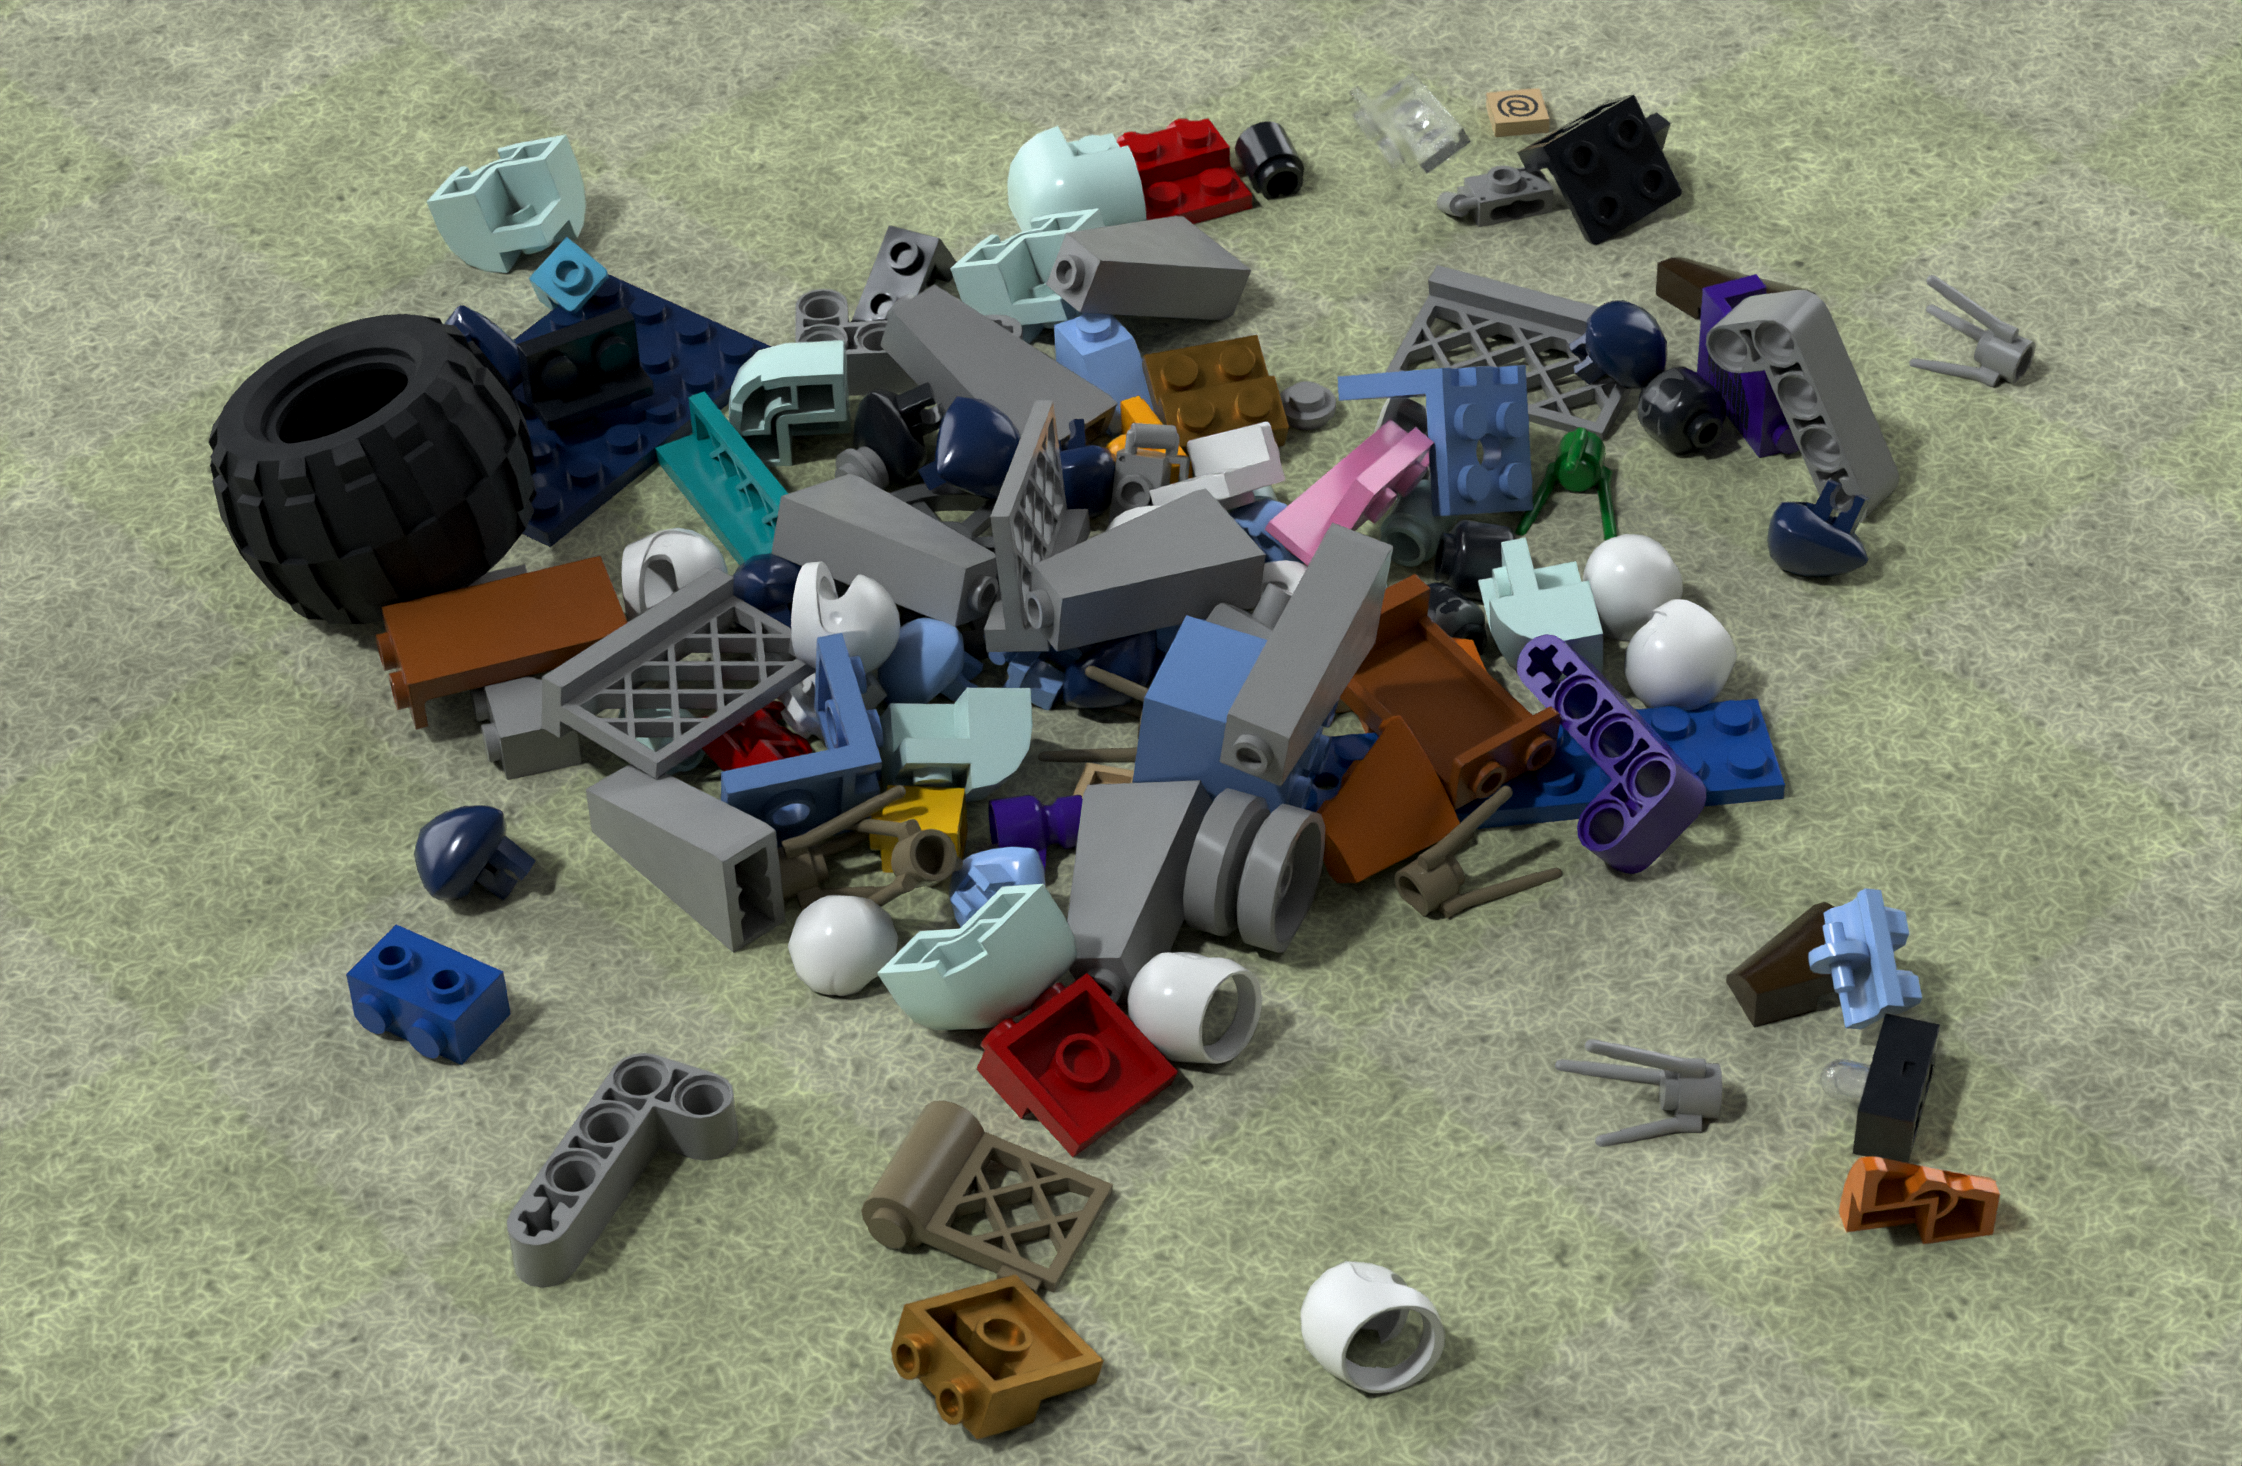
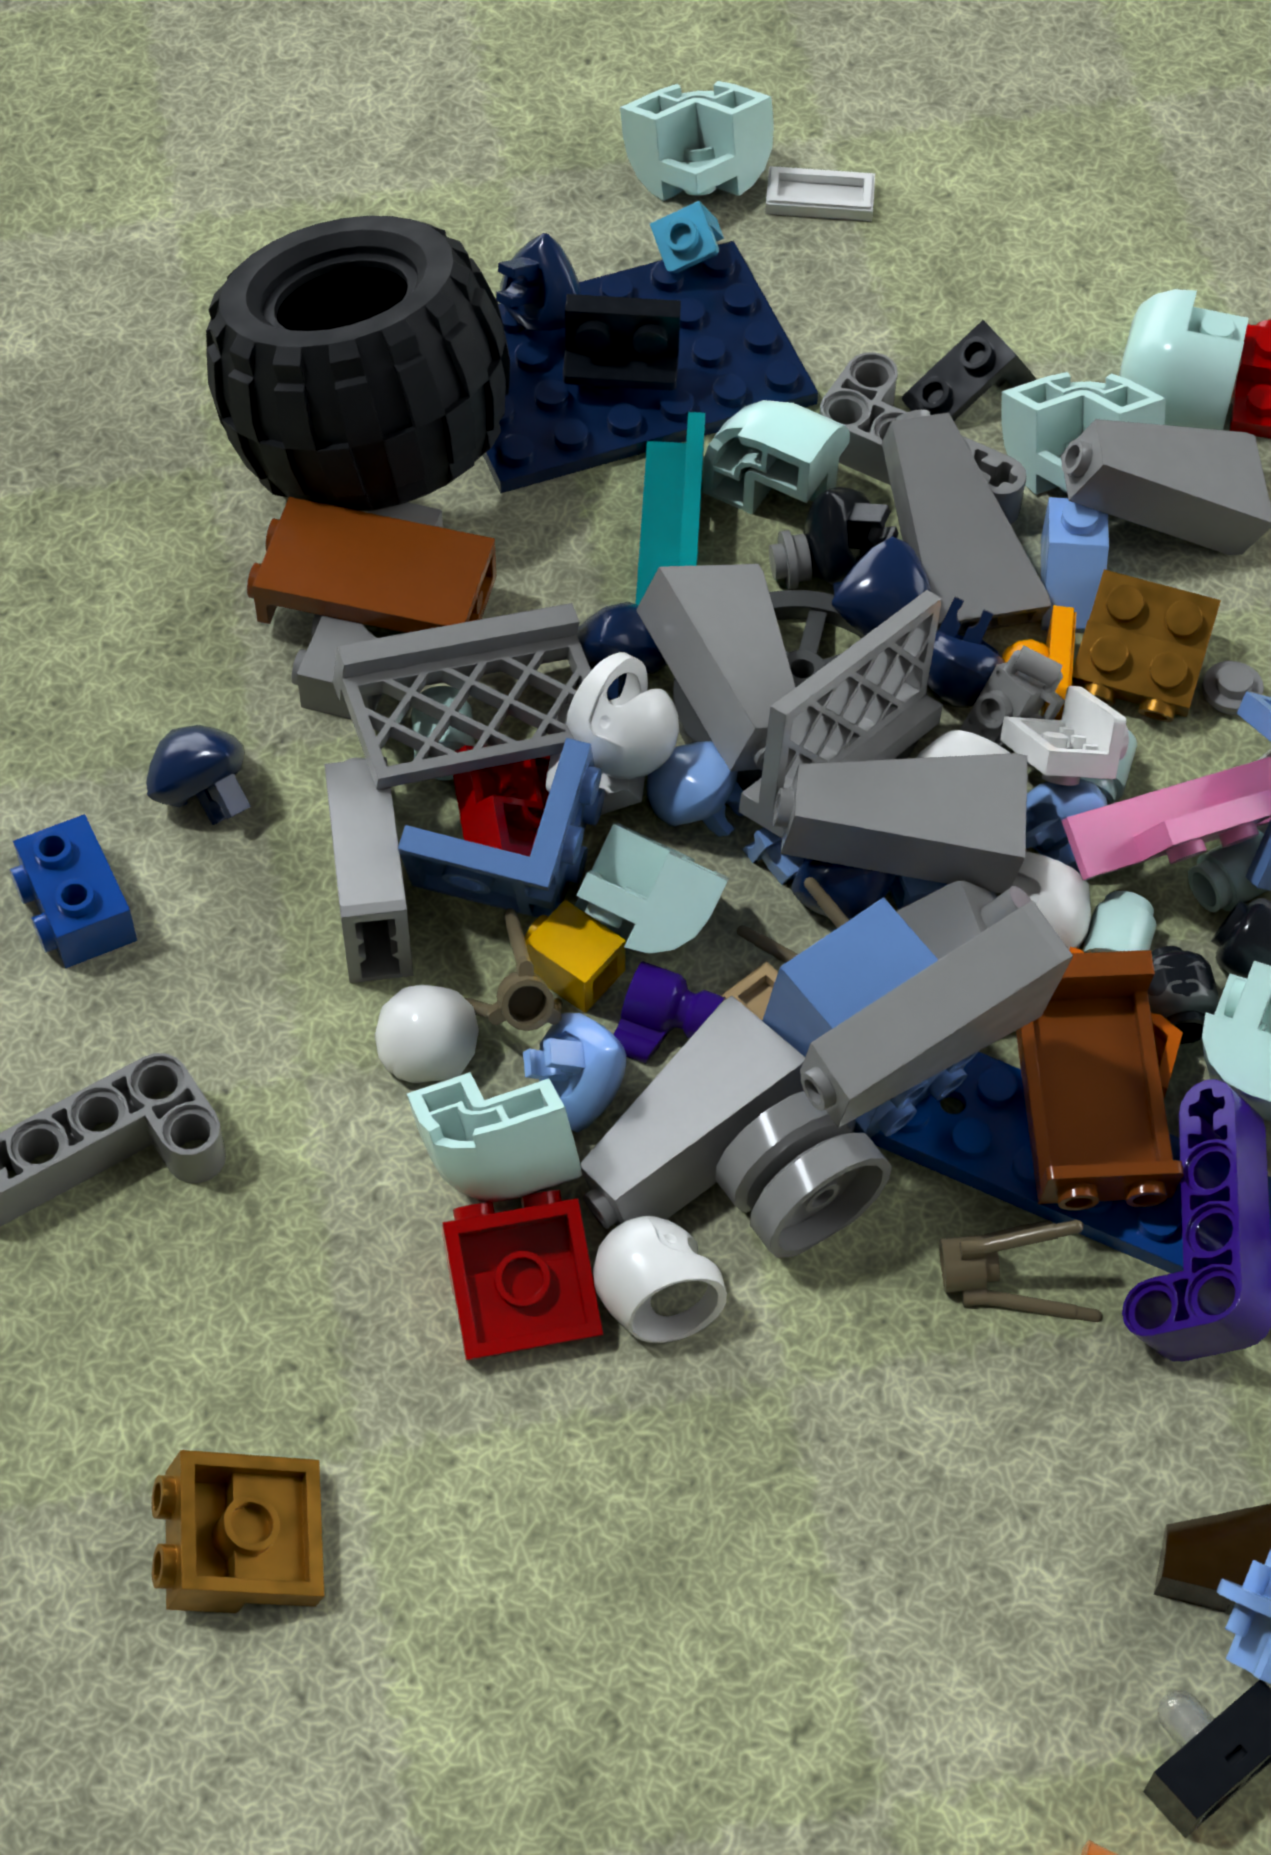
camera: 30 degrees right, 15 degrees up
(647, 208) = (820, 193): none -> white tile
(663, 565) = (563, 576): white helmet -> none
(803, 858) = (456, 933): dark tan plant -> none
(932, 1185) = (320, 1322): dark tan piece -> none
(1368, 1298) = (561, 1689): white helmet -> none
(1385, 807) = (971, 1169): orange slope -> none
(1685, 1084) = (1032, 1630): light grey plant -> none

